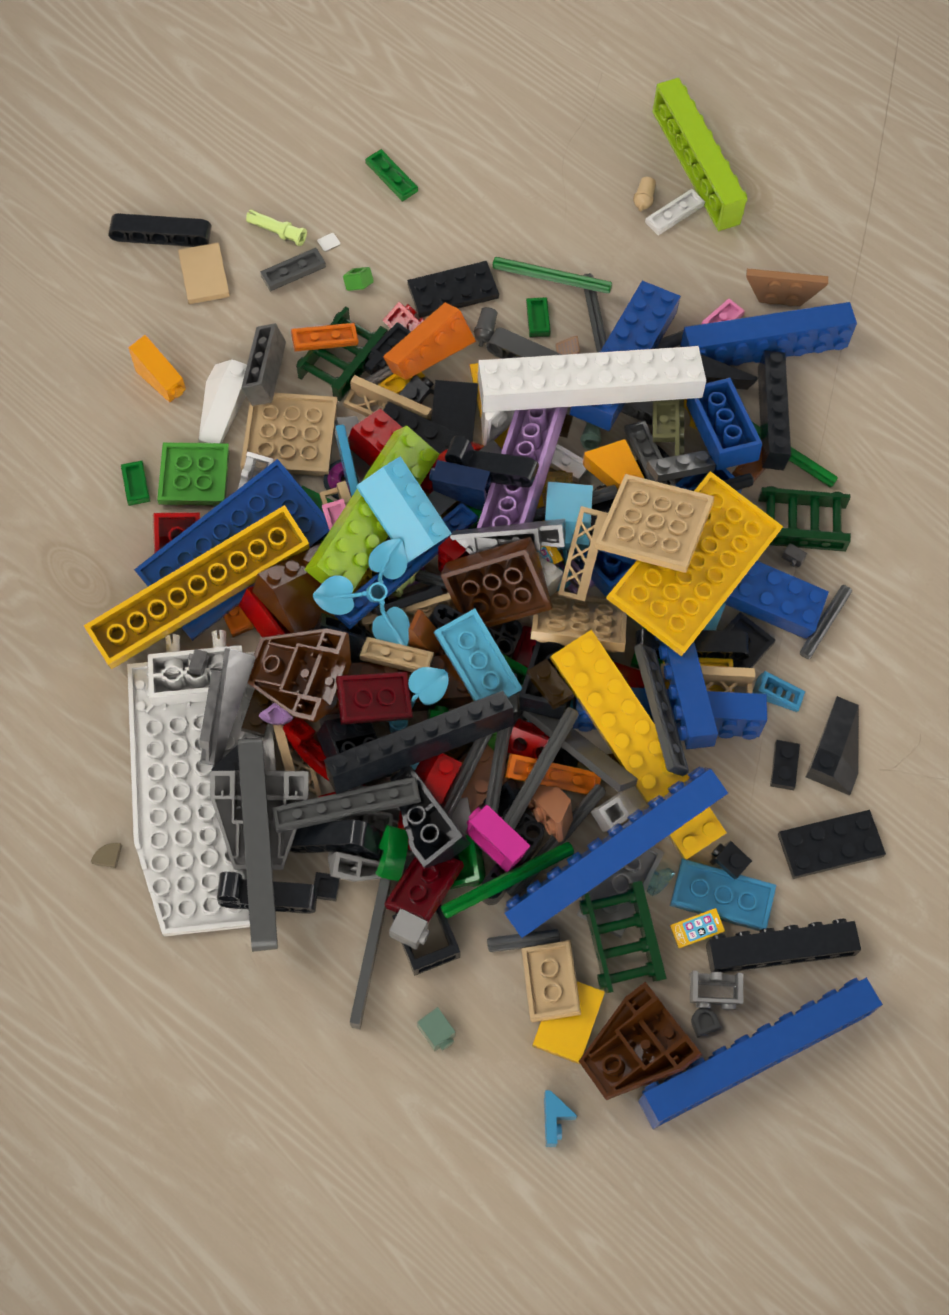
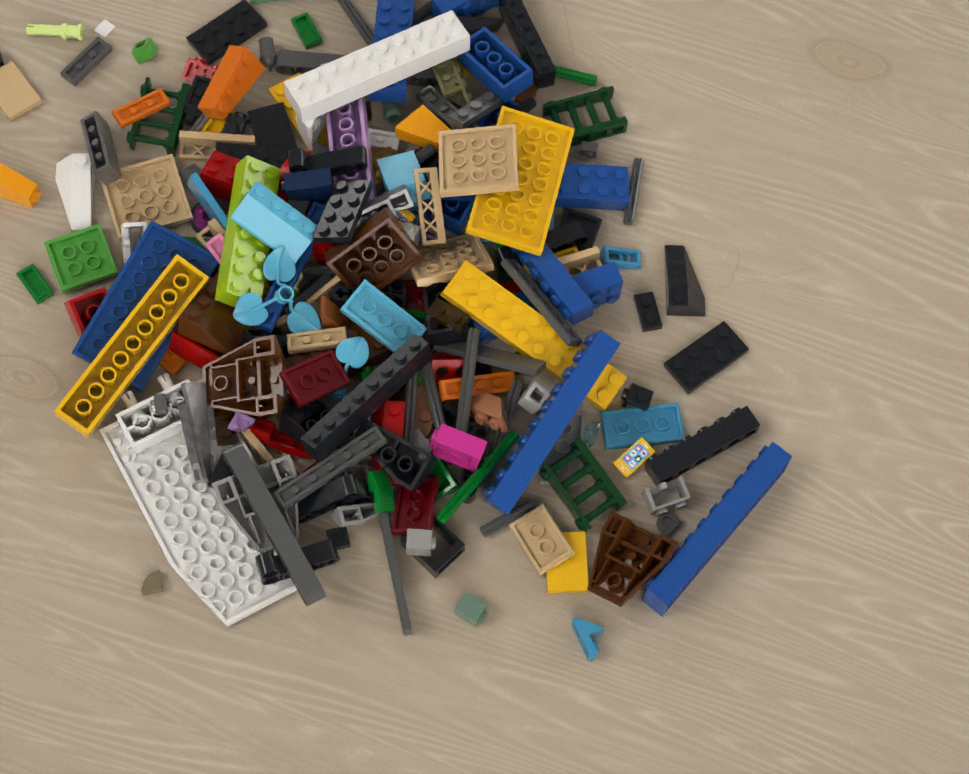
camera: 25 degrees left, 0 degrees up
(482, 524) = (343, 211): none -> black plate
(568, 346) = (343, 46): medium nougat slope -> none

